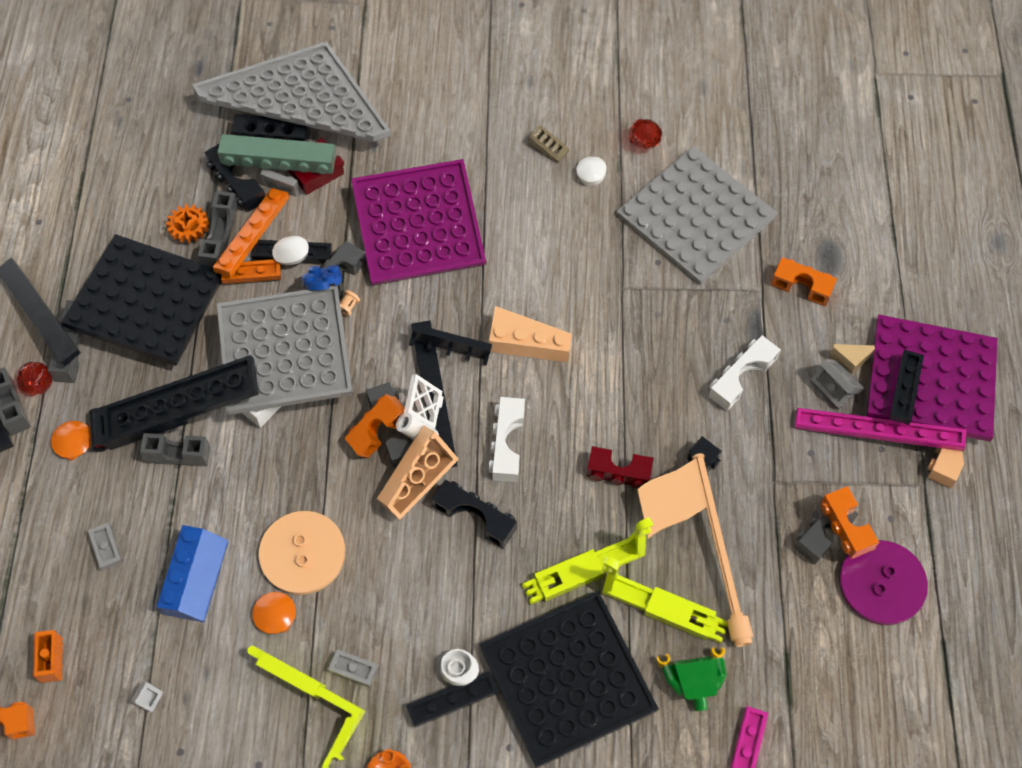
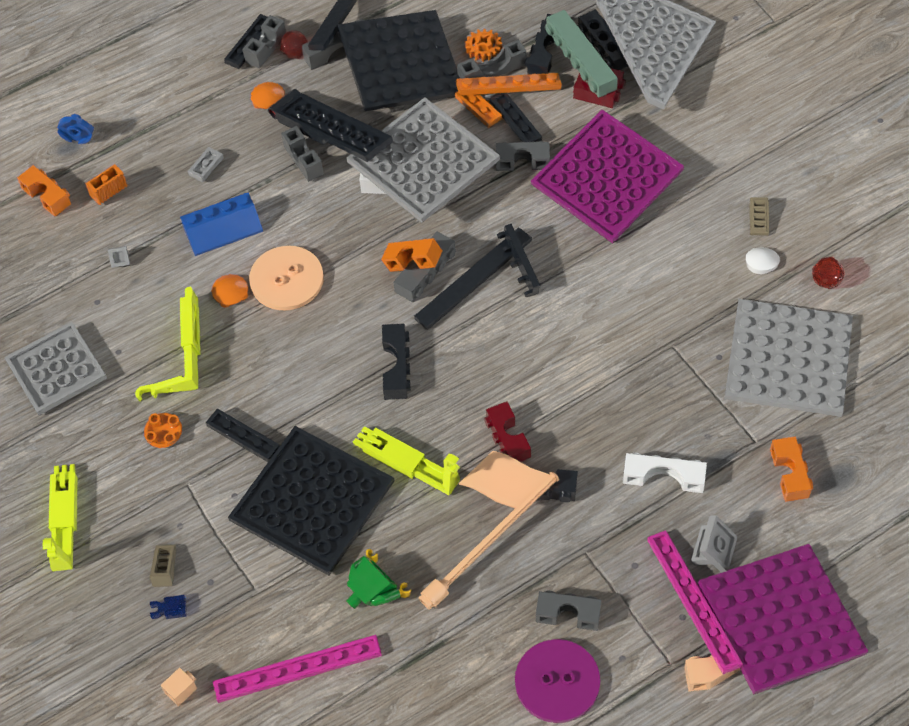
camera: 60 degrees right, 5 degrees down
(277, 181) = (565, 71): light grey plate -> none
(290, 250) = (512, 116): white hat -> none
(320, 278) = (499, 143): blue plate -> none
(348, 302) = (505, 178): light nougat bush -> none
(353, 668) = (222, 361): light grey plate -> none
(411, 422) = (430, 280): white piece -> none
(417, 472) = (398, 301): light nougat wedge -> none
(459, 667) = (268, 423): white hat -> none
(506, 462) = (491, 335): white arch -> none
(527, 338) = (566, 302): light nougat wedge -> none
(662, 604) = (414, 524): neon yellow hinge -> none
(851, 356) = (749, 545): tan slope -> none
(854, 539) = (587, 600): orange arch -> none
(906, 387) = (744, 593): black plate -> none

